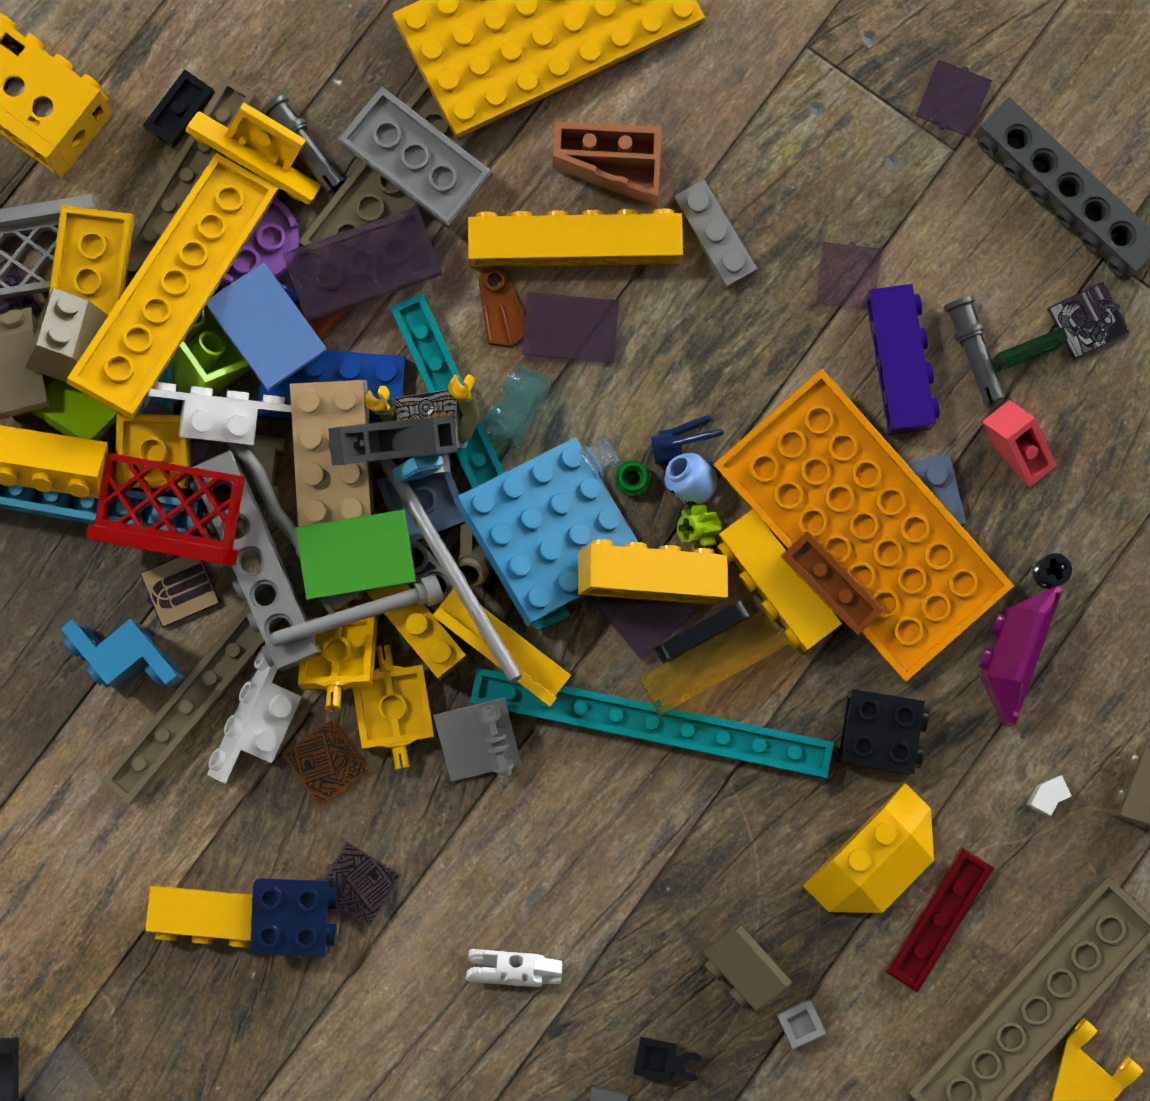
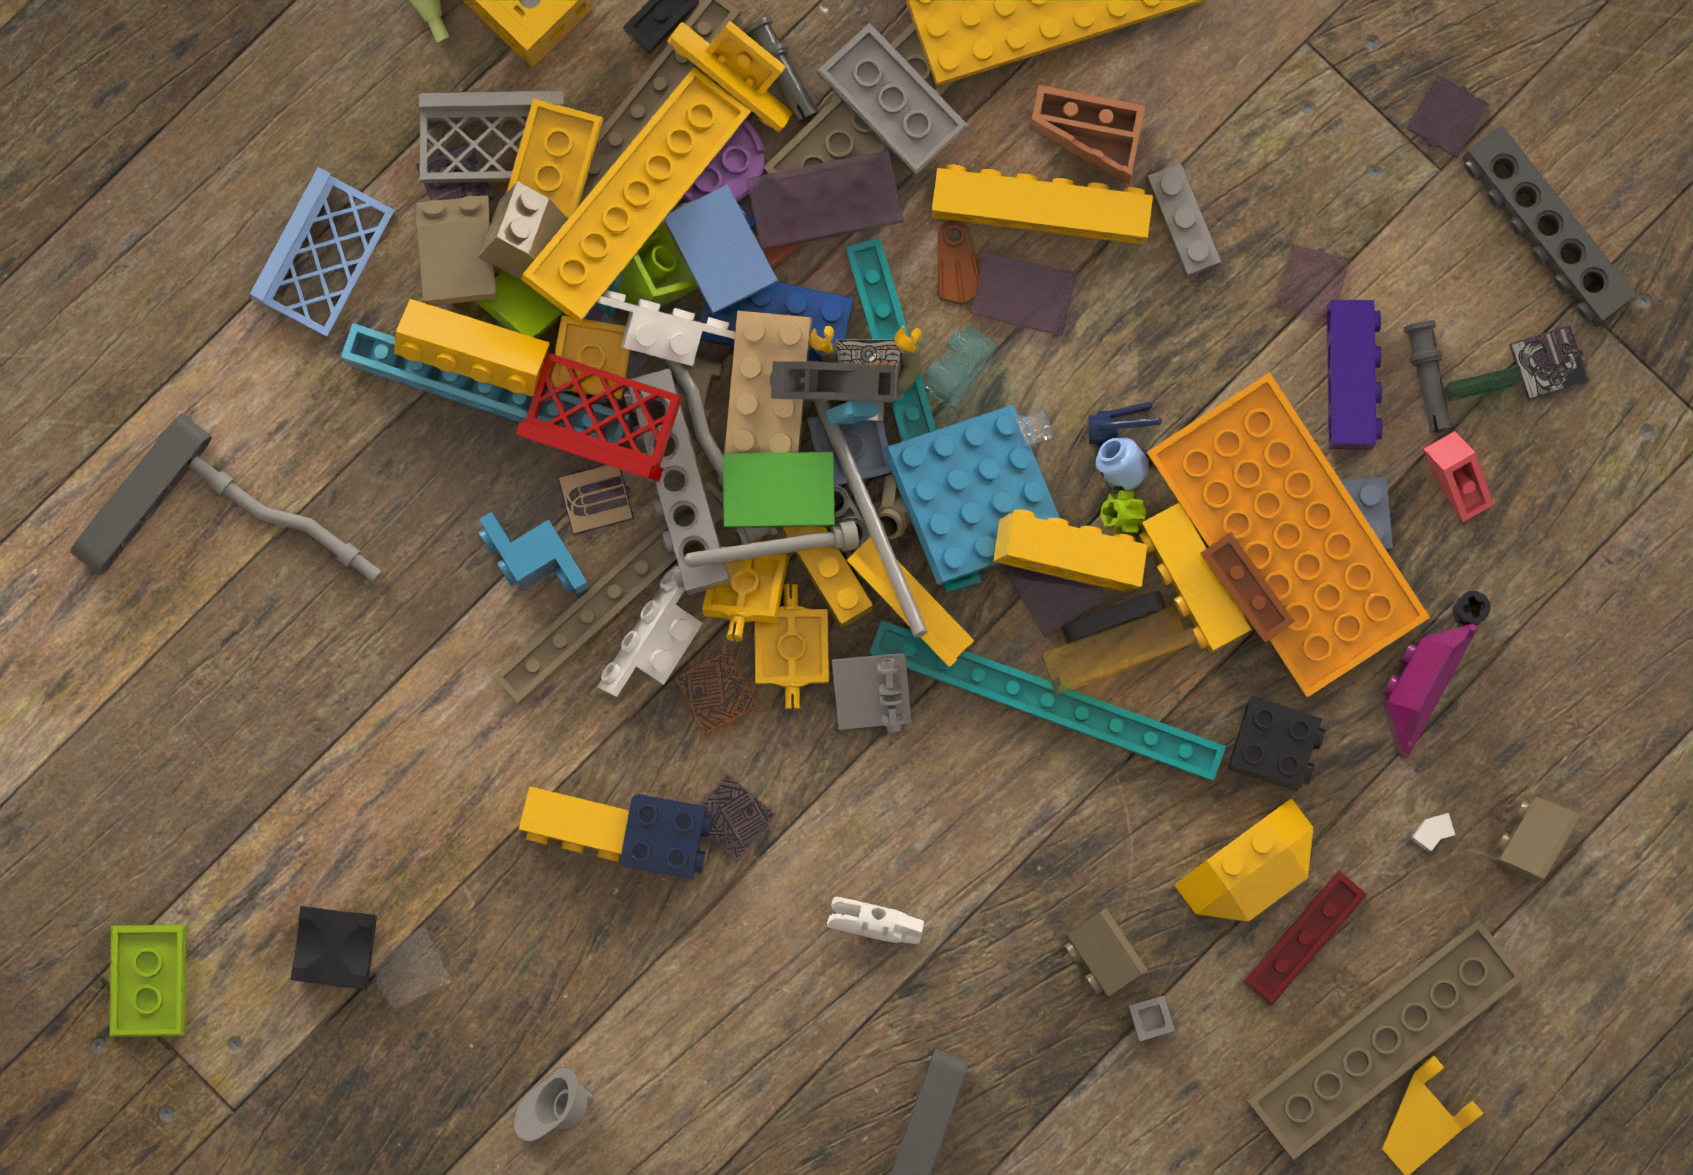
camera: 10 degrees right, 0 degrees up
(638, 468) = (1069, 444): green plate -> none
(658, 1060) = (1005, 1031): black plate -> none

